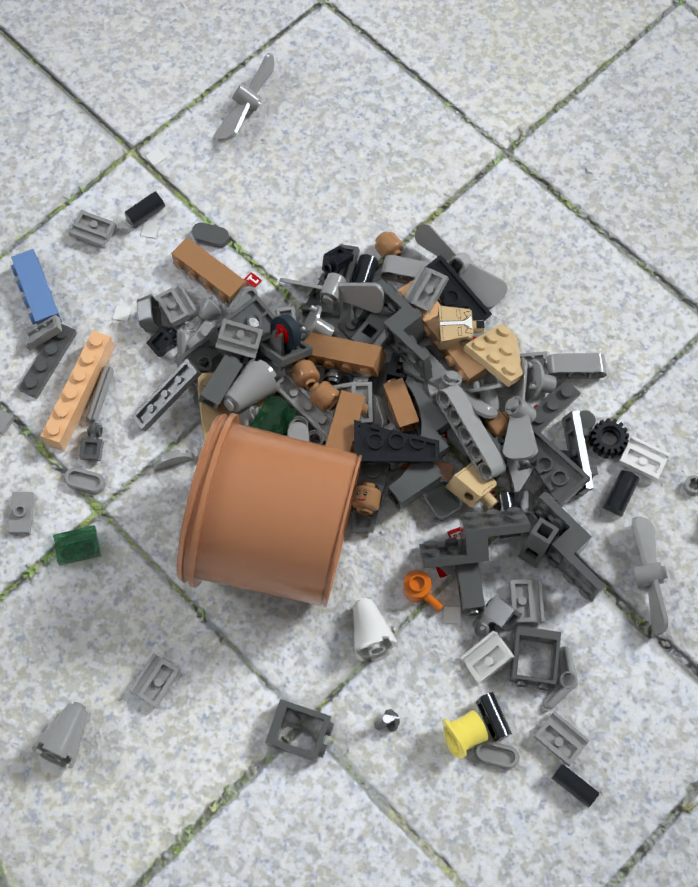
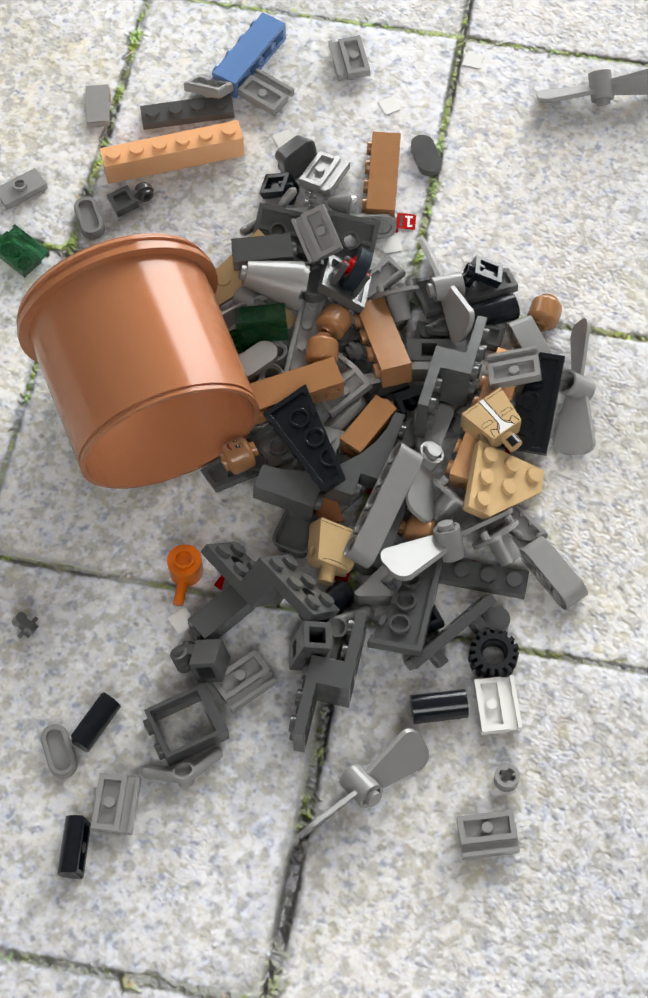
camera: 55 degrees right, 5 degrees down
(76, 299) = (265, 92): none -> light grey plate
(100, 394) = (185, 173): light grey axle -> none
(144, 209) = (404, 83): black brick -> none
(166, 395) = (220, 220): plate -> none
(371, 632) = (104, 550): white cone -> none
(464, 733) = (56, 700): light yellow piece -> none
(487, 657) = (153, 675): white plate -> none

